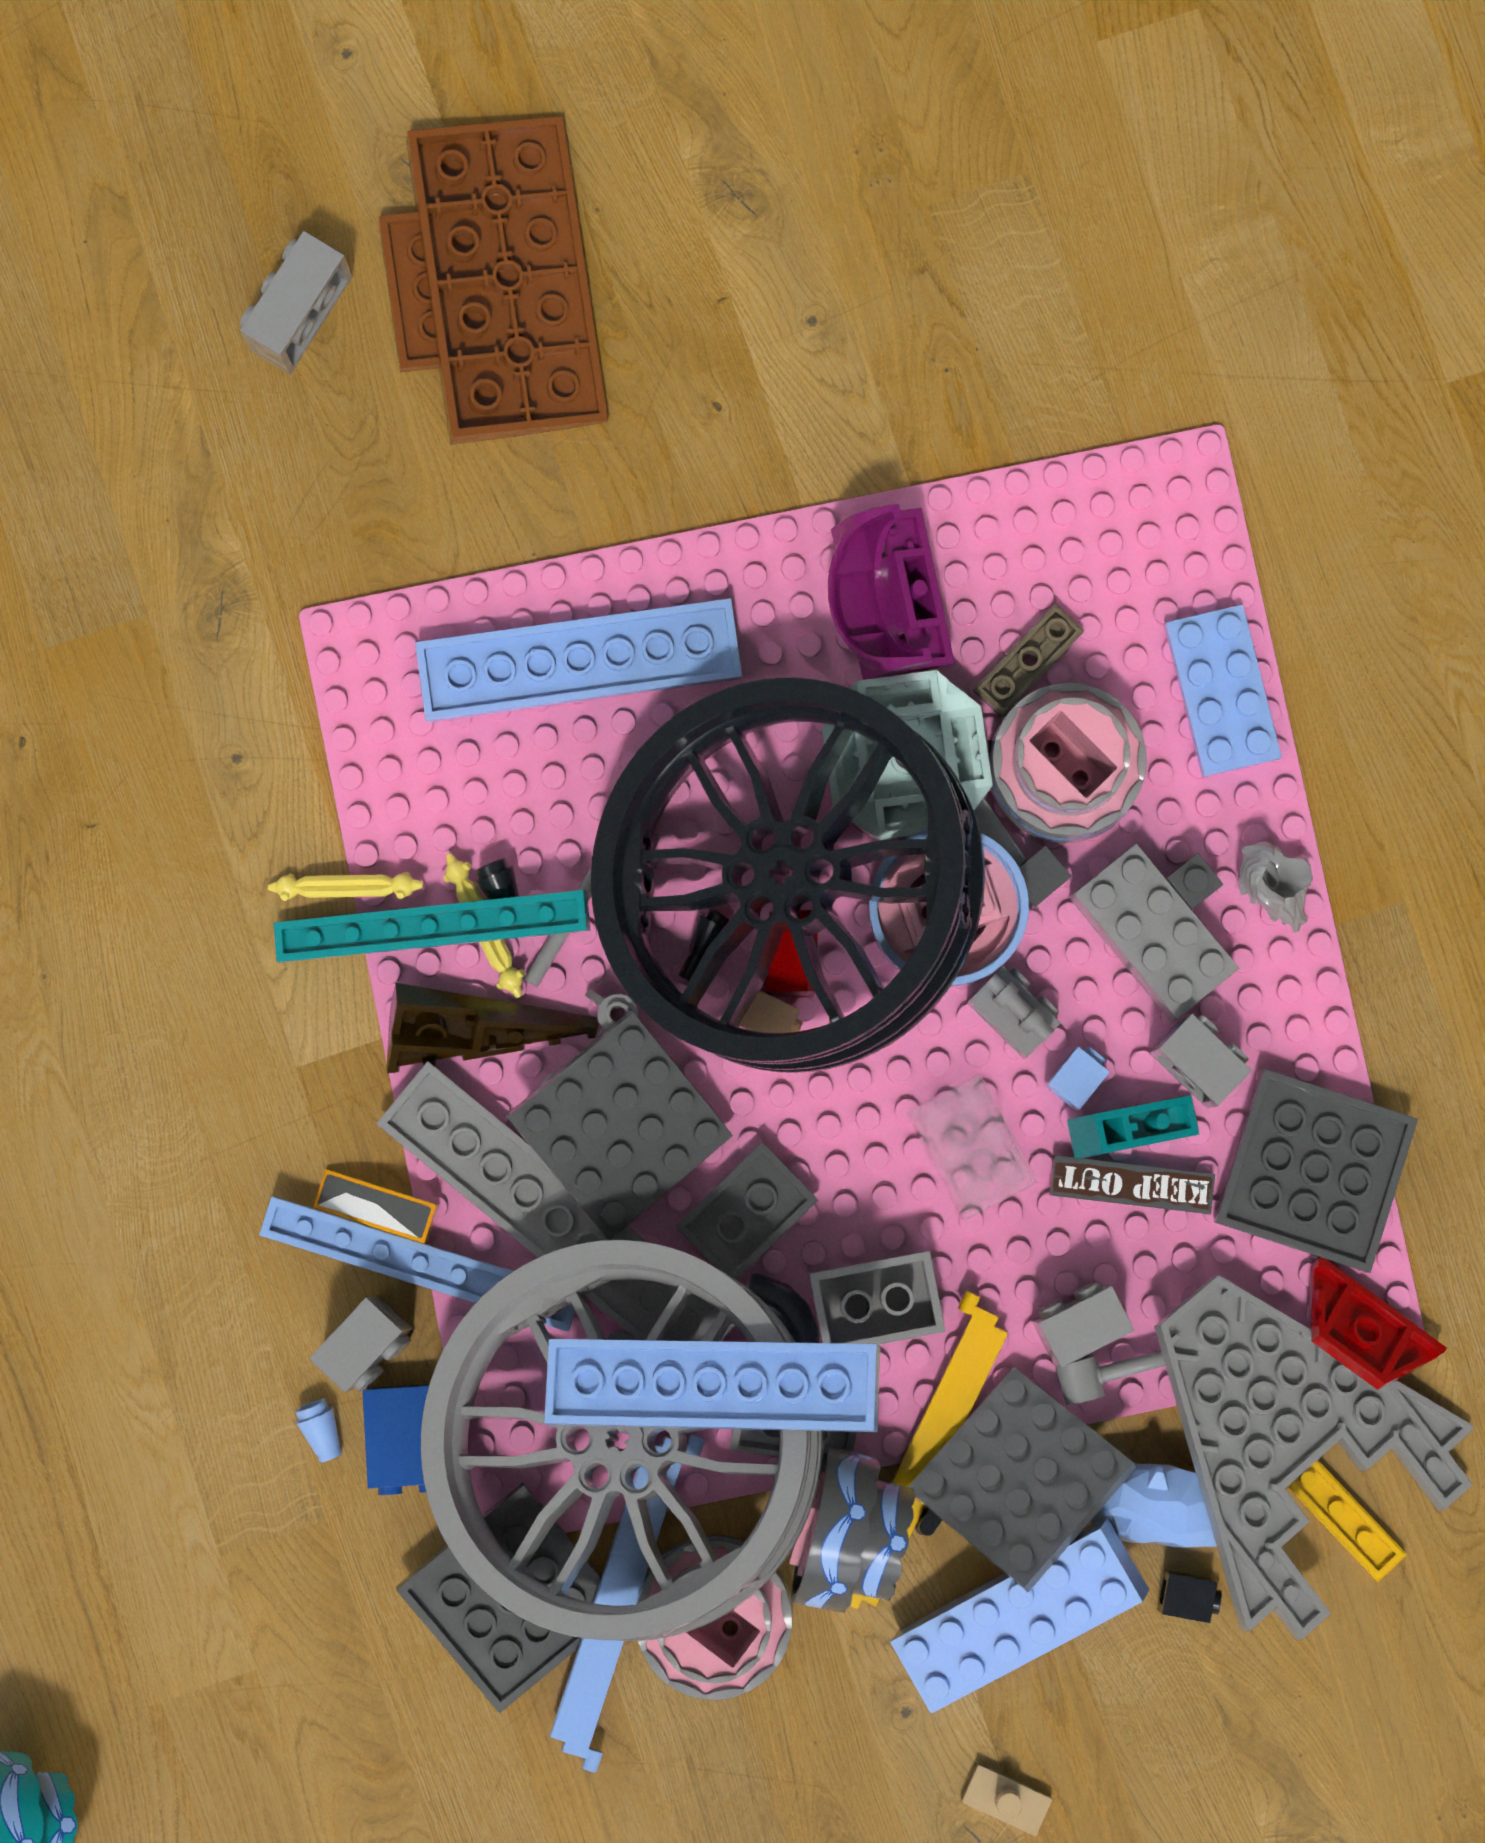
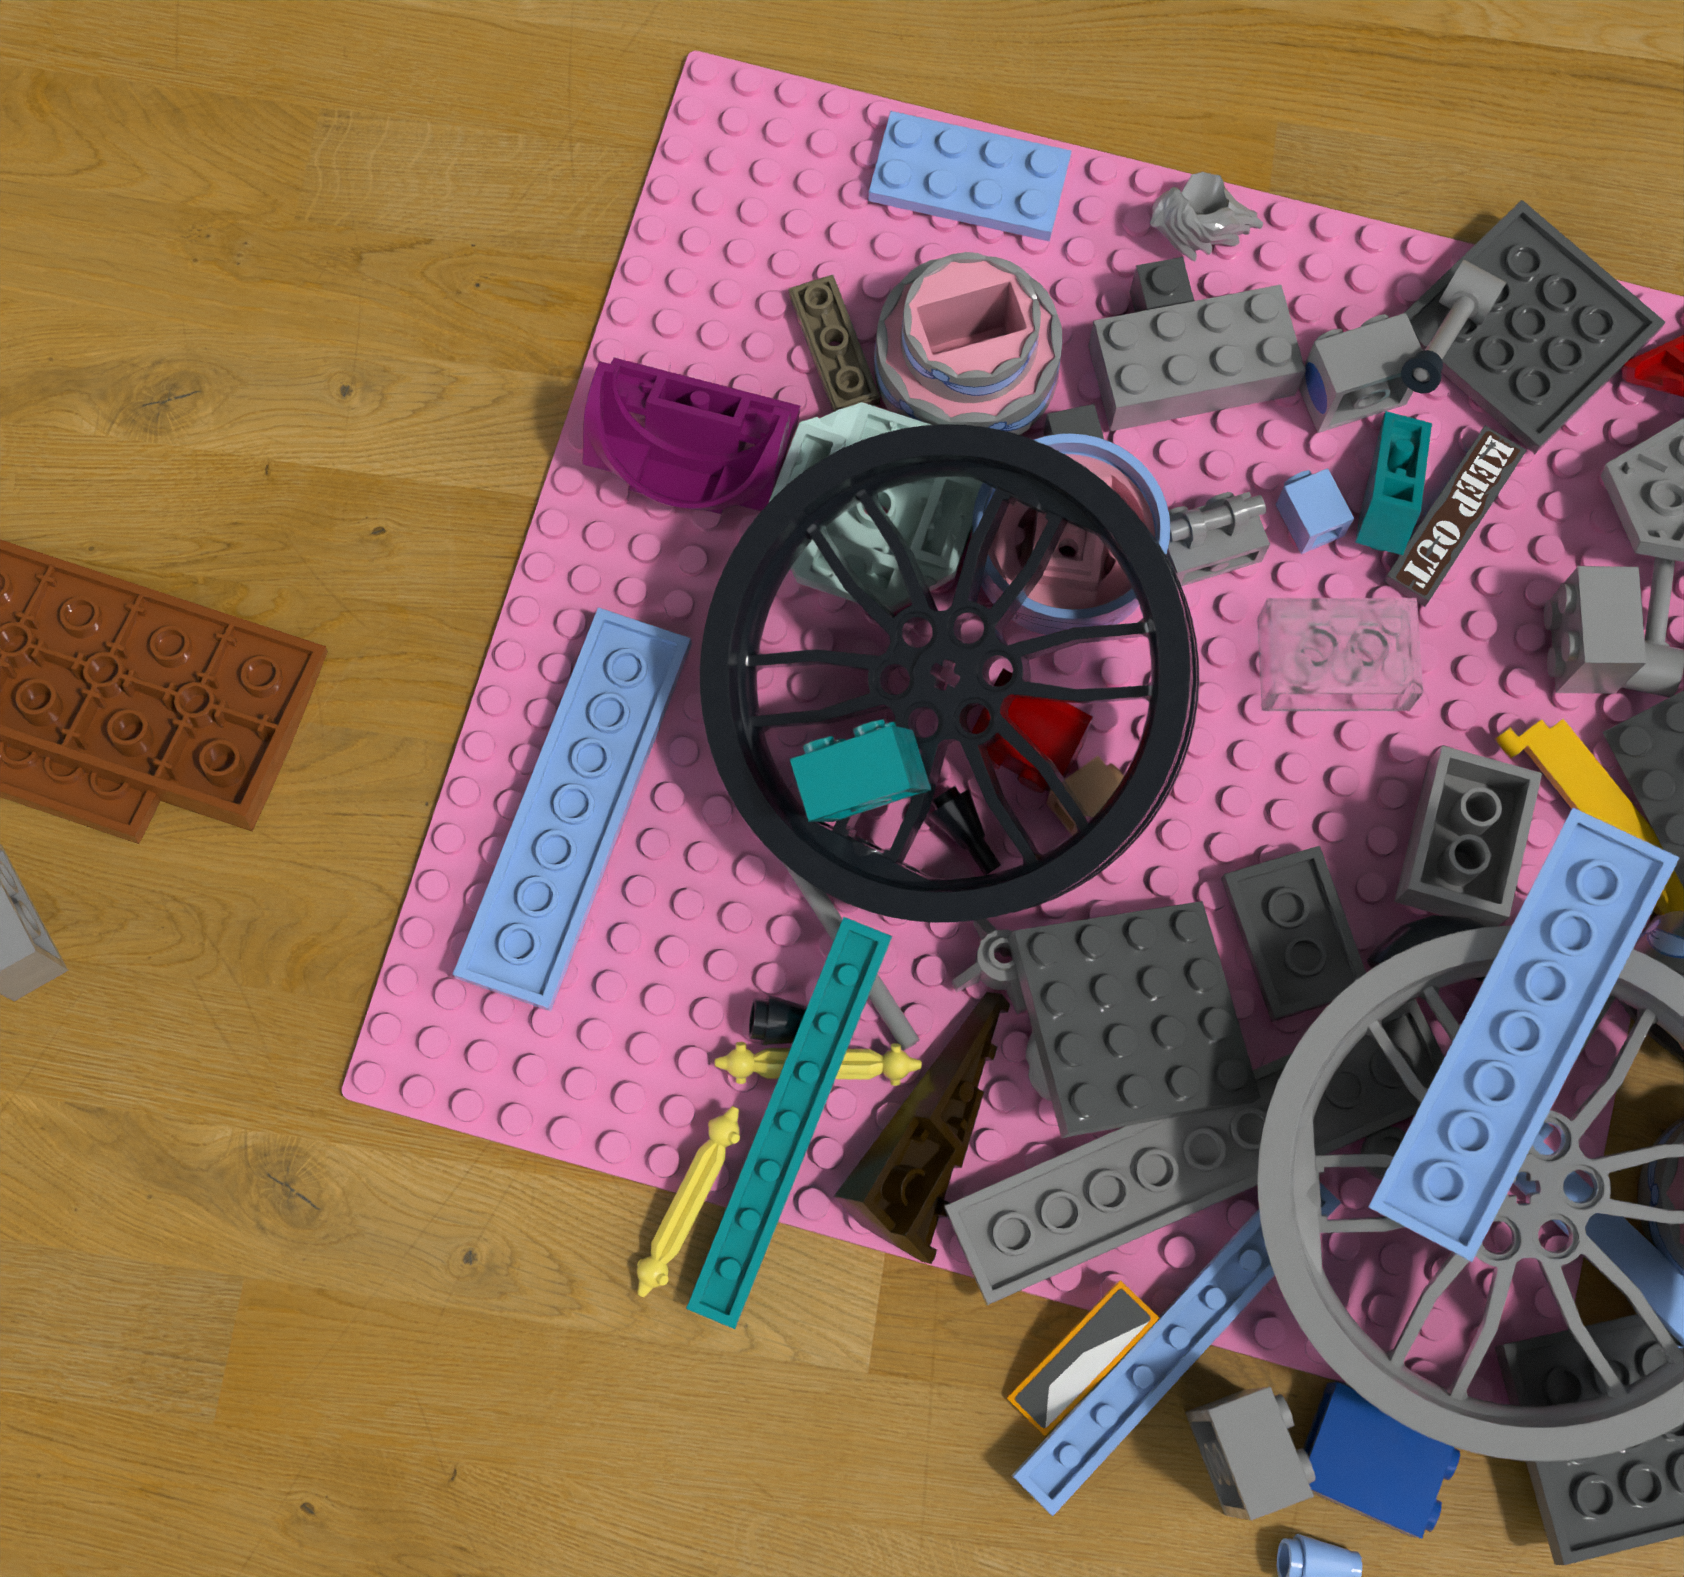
camera: 60 degrees left, 10 degrees down
(674, 849) = (860, 772): none -> teal brick
(1306, 1113) = (1468, 297): none -> light grey piece

